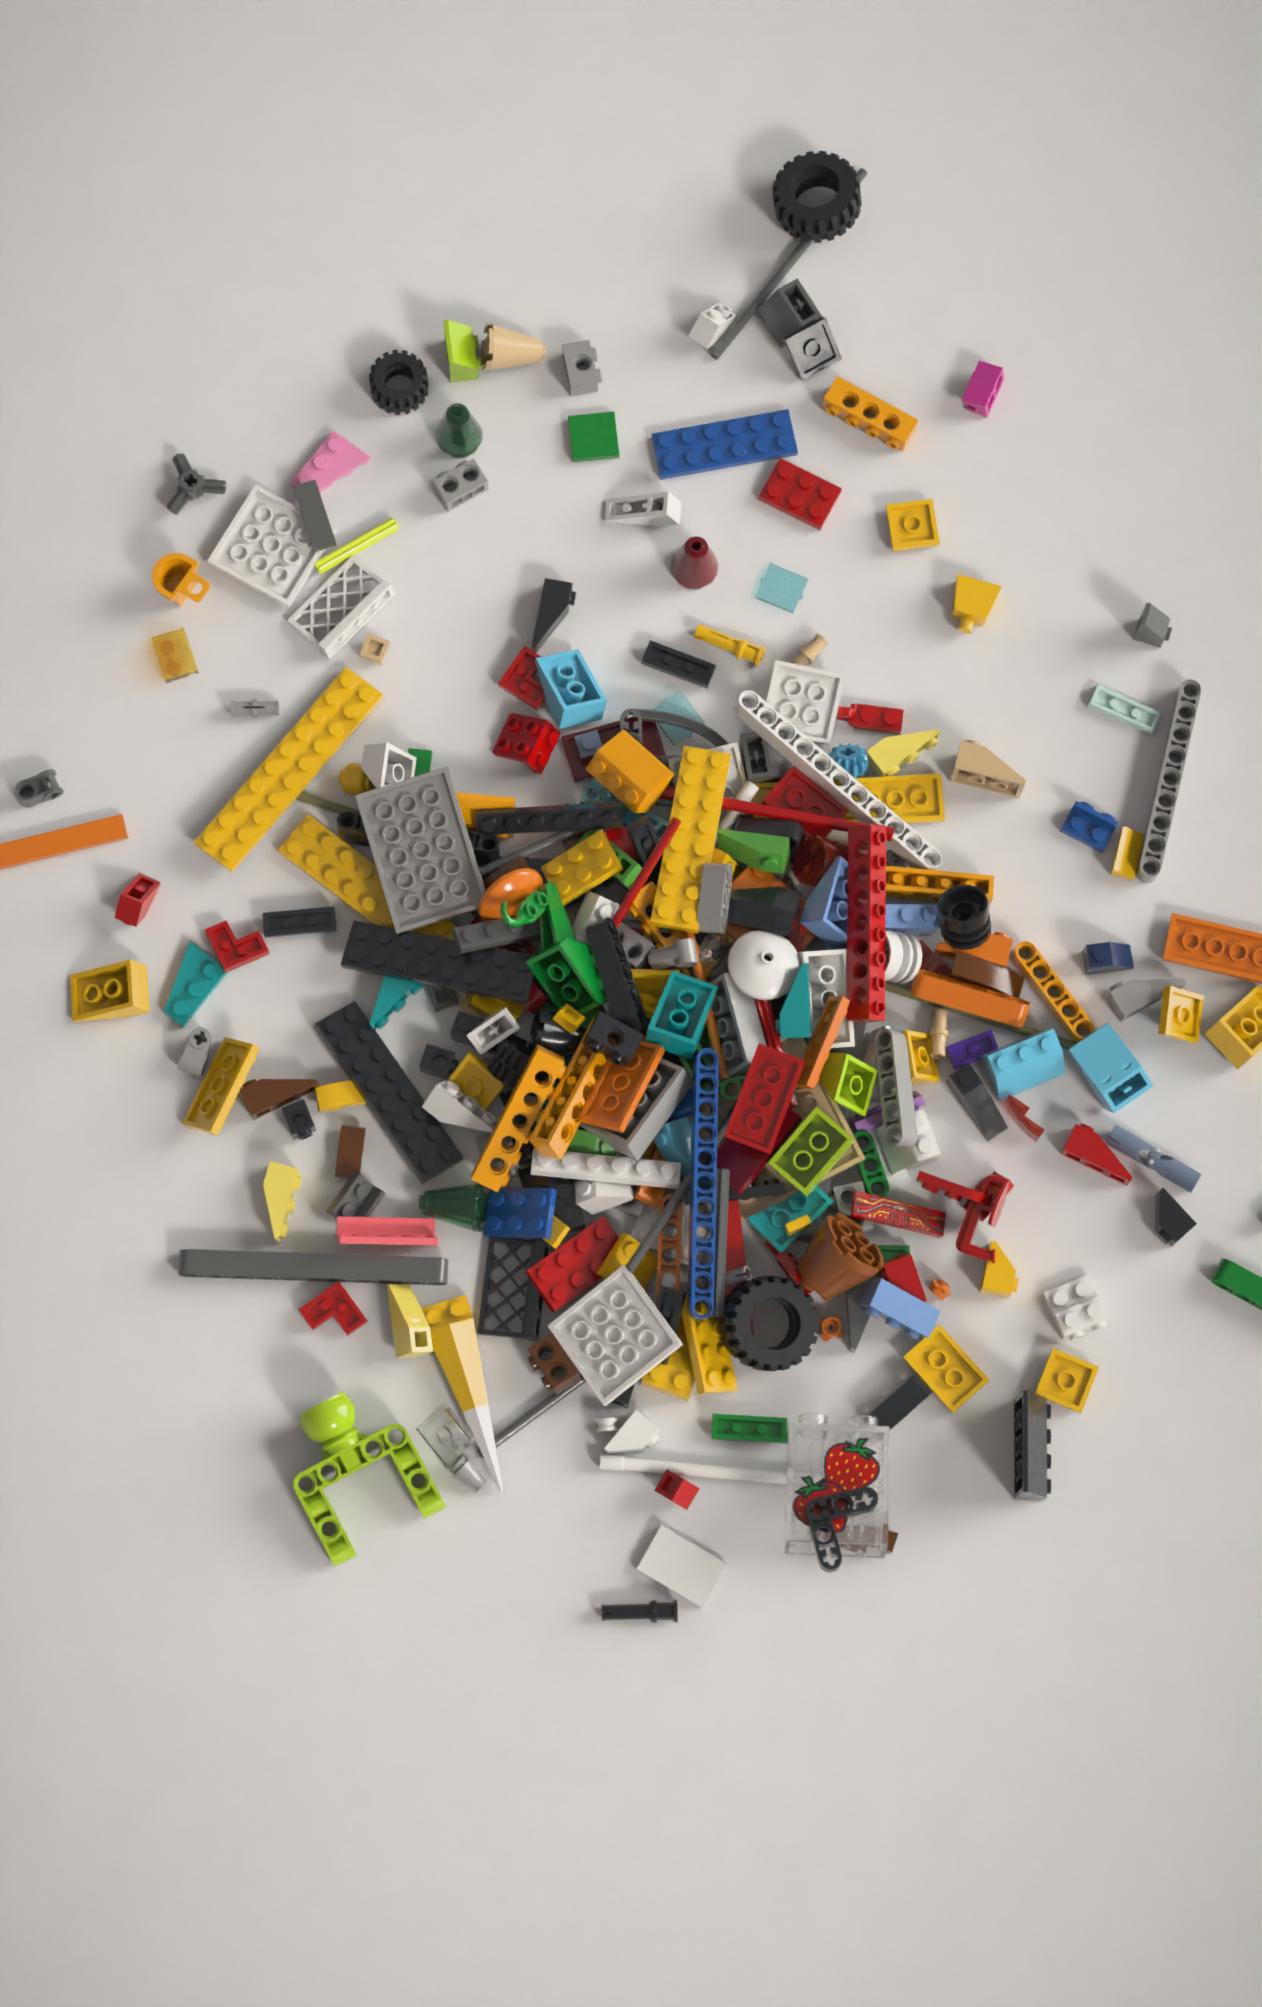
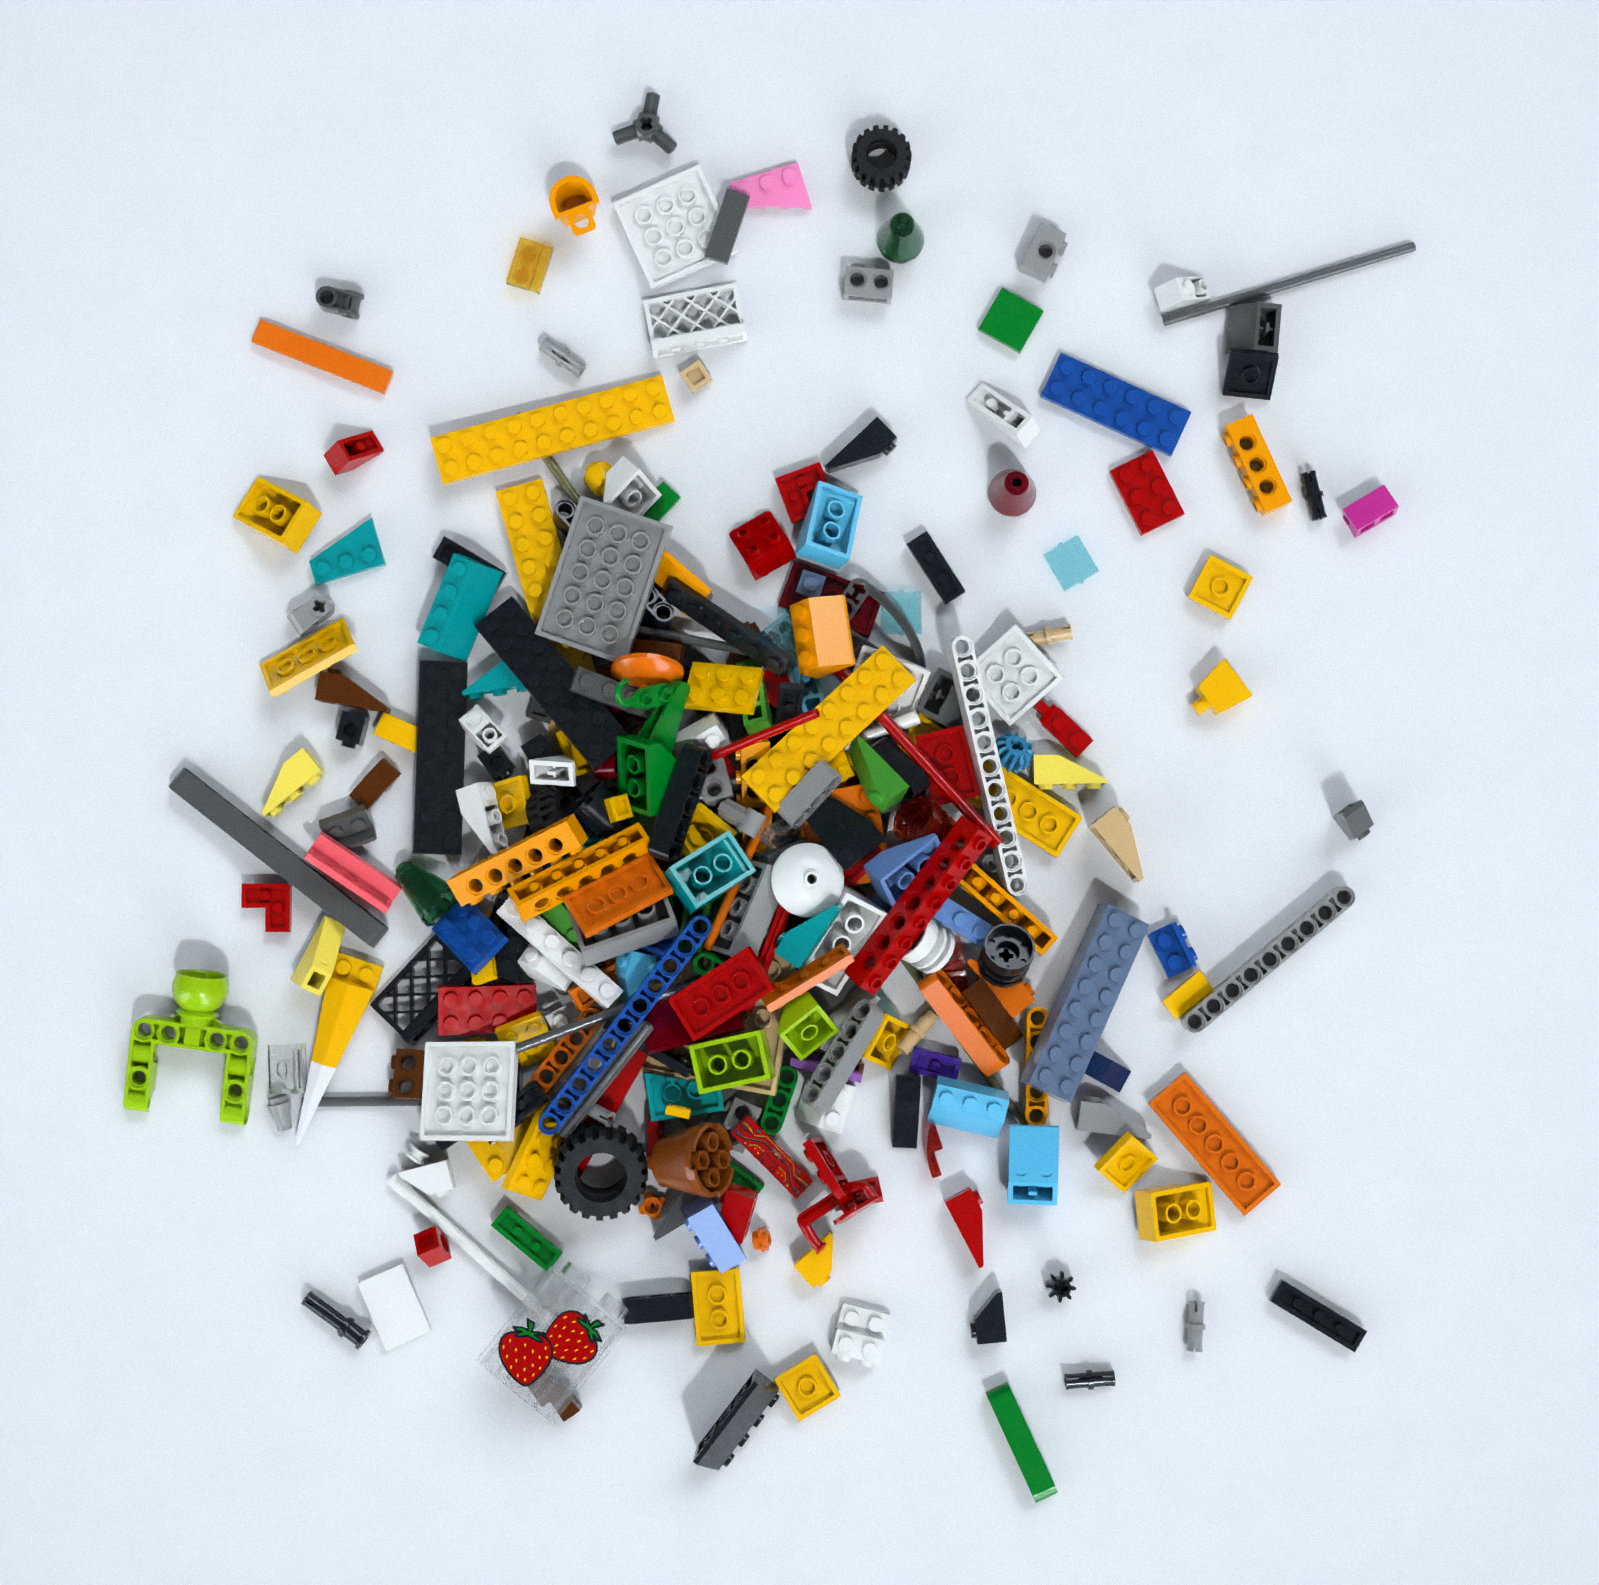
camera: 45 degrees right, 10 degrees up
(233, 952) = (398, 551): red plate -> none
(317, 958) = (459, 606): none -> teal slope
(356, 545) = (745, 276): neon yellow axle -> none
(409, 1042) = (482, 729): none -> white slope
(461, 351) = (952, 167): lime slope -> none
(509, 348) = (995, 194): tan cone -> none
(626, 1039) = (646, 863): black brick -> none
(739, 648) = (997, 591): yellow pin -> none
(810, 172) = (1357, 214): black tyre -> none
(825, 1521) = (516, 1371): black beam -> none
(931, 407) = (1313, 495): none -> black pin
(1053, 913) = (1084, 1002): none -> sand blue brick
(1124, 709) = (1278, 871): light aqua tile -> none
(1163, 1164) = (1017, 1268): sand blue piece -> none
(1207, 1144) = (1065, 1292): none -> black gear

